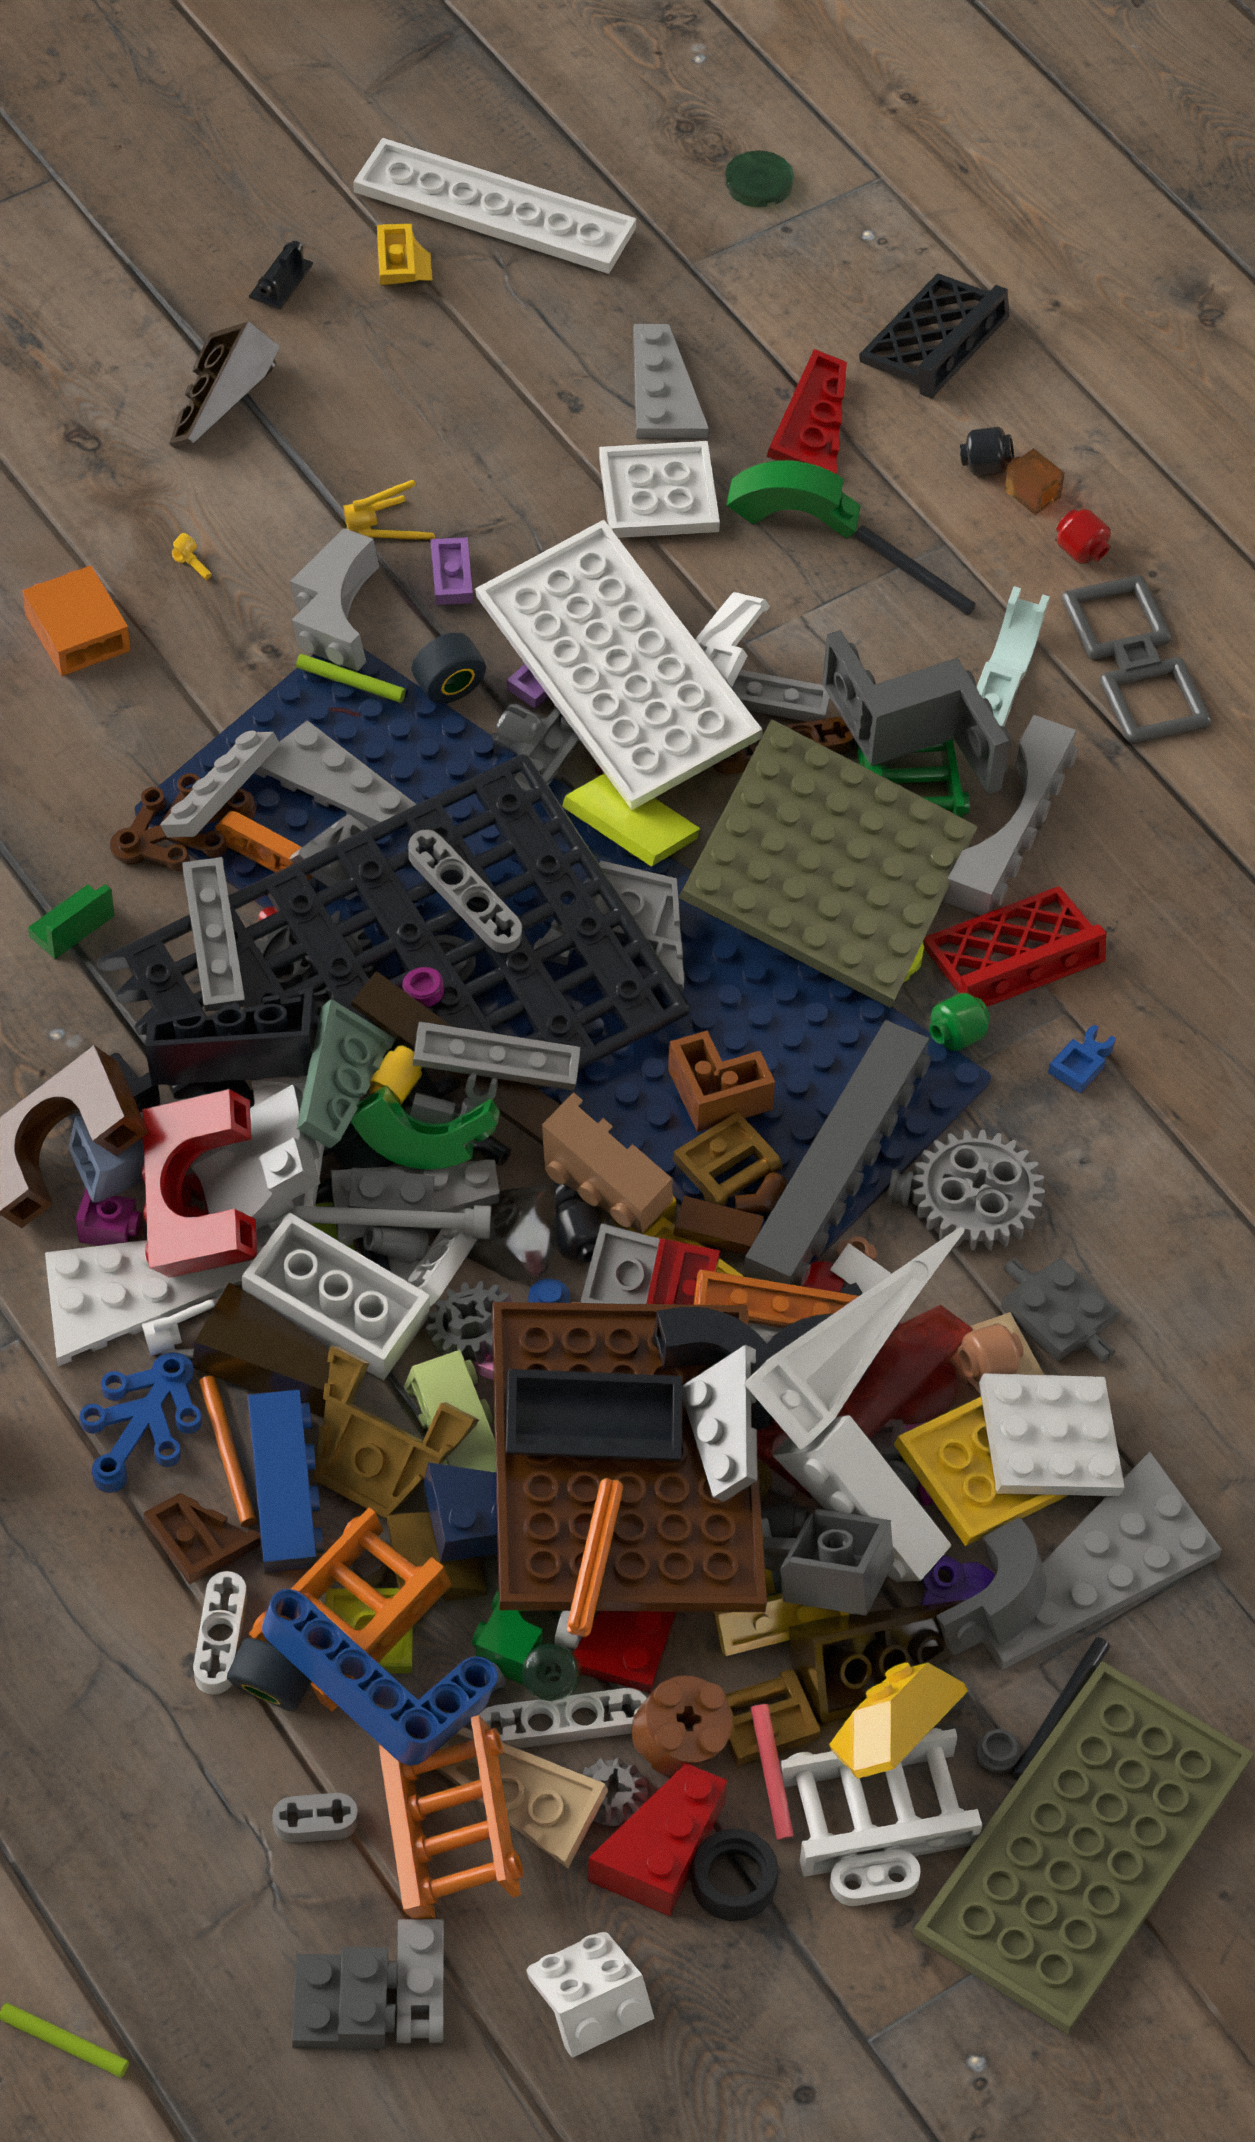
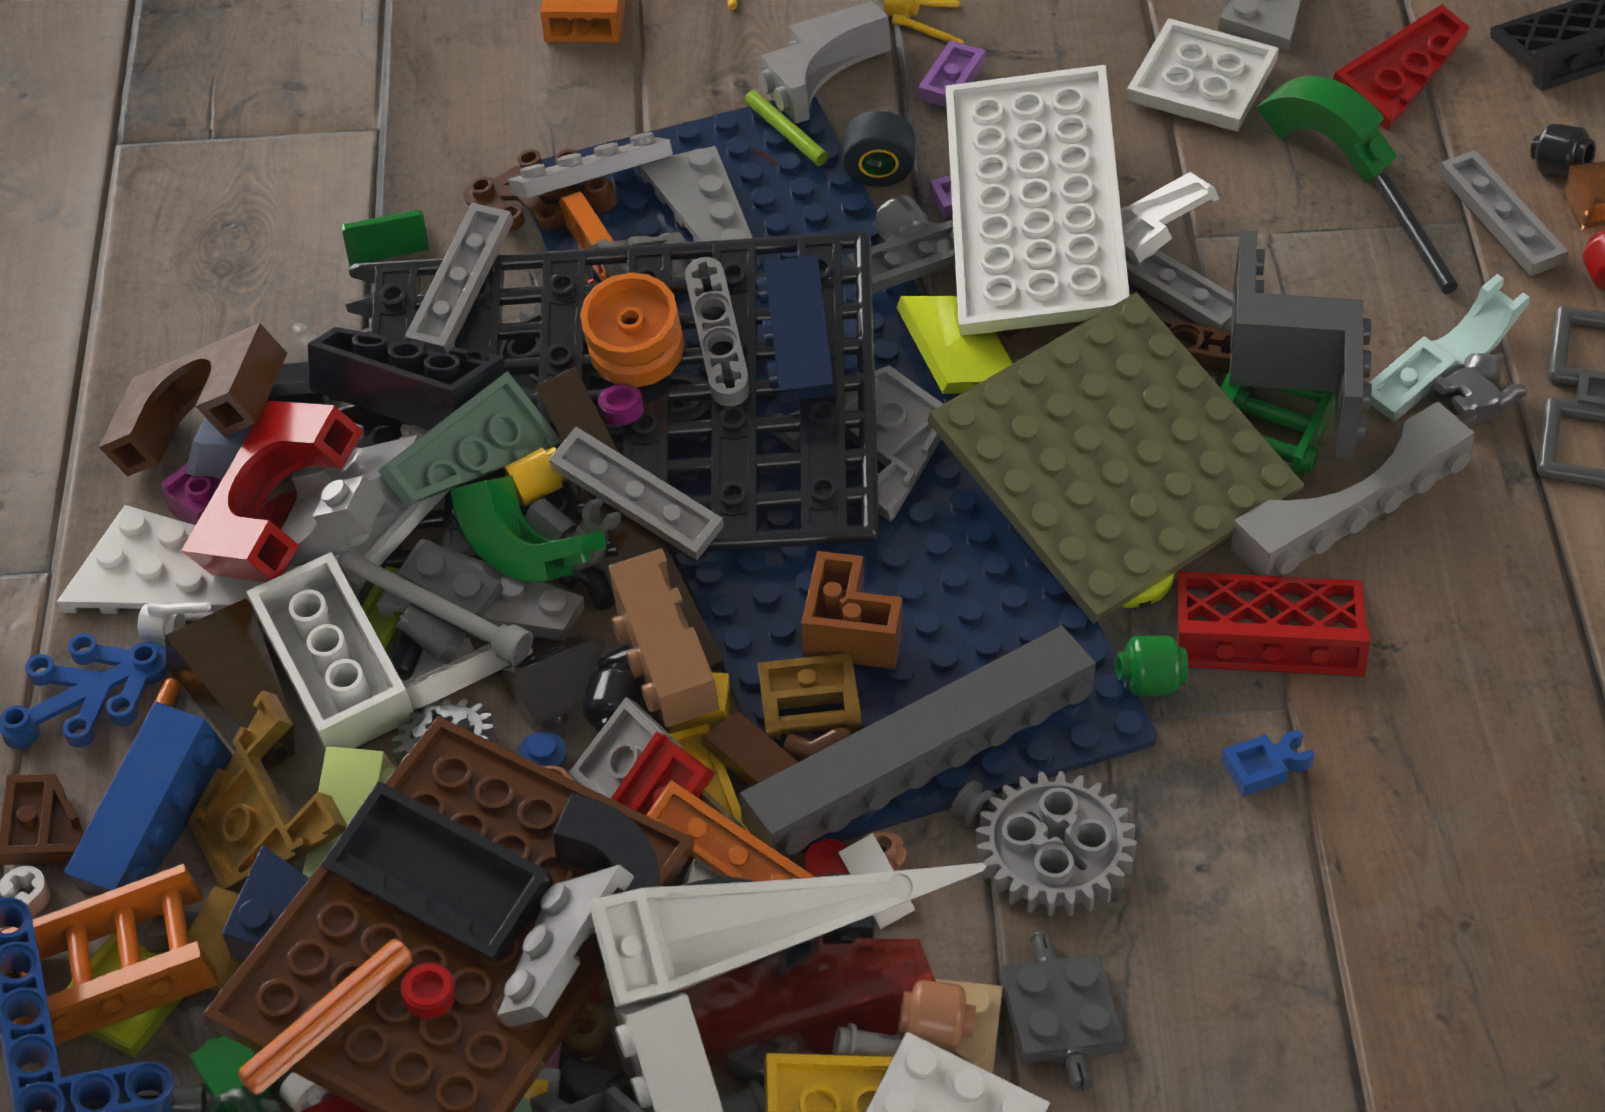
camera: 35 degrees right, 5 degrees down
(404, 919) = (632, 329): none -> orange wheel
(541, 863) = (796, 329): none -> dark blue wedge
(650, 1504) = (428, 990): none -> red tile
(945, 1400) = (863, 1043): none -> light grey pin
(973, 525) = (1503, 213): none -> light grey plate
(1044, 692) = (1474, 389): none -> flat silver animal

